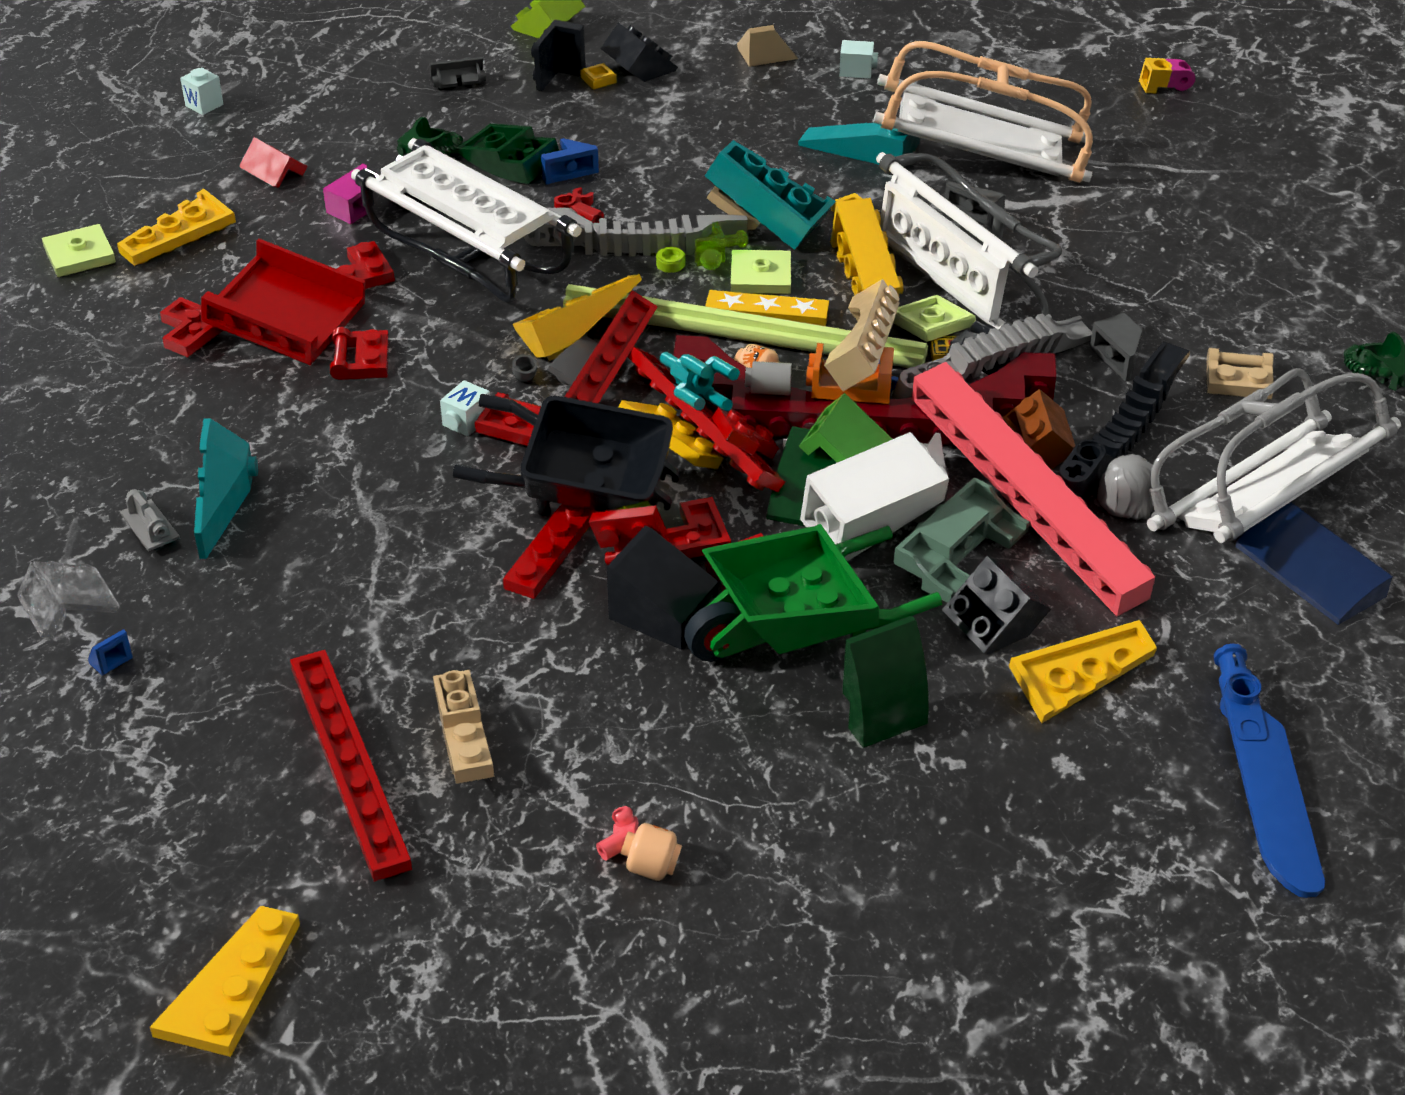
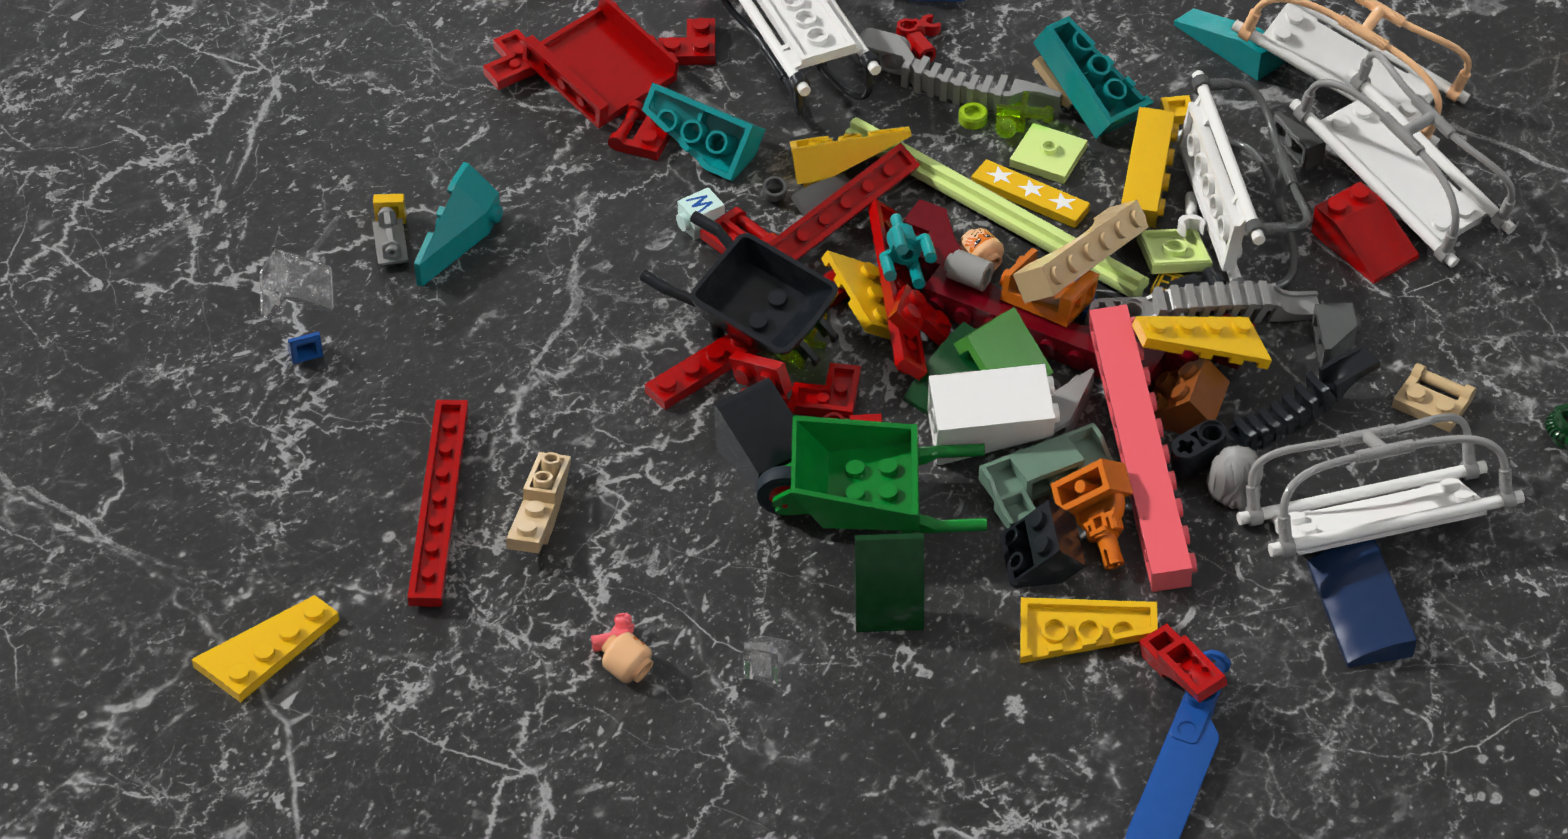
camera: 25 degrees right, 5 degrees up
(139, 481) = (394, 201): none -> yellow tile
(433, 336) = (713, 137): none -> teal wedge
(795, 803) = (765, 658): none -> clear slope
(929, 289) = (1190, 219): none -> white piece
(1029, 548) = (1098, 502): none -> orange brick
(1030, 370) = (1204, 336): none -> yellow wing
(1081, 202) = (1403, 163): none -> white piece
(1087, 259) = (1363, 232): none -> red slope
(1210, 664) = (1182, 662): none -> red slope

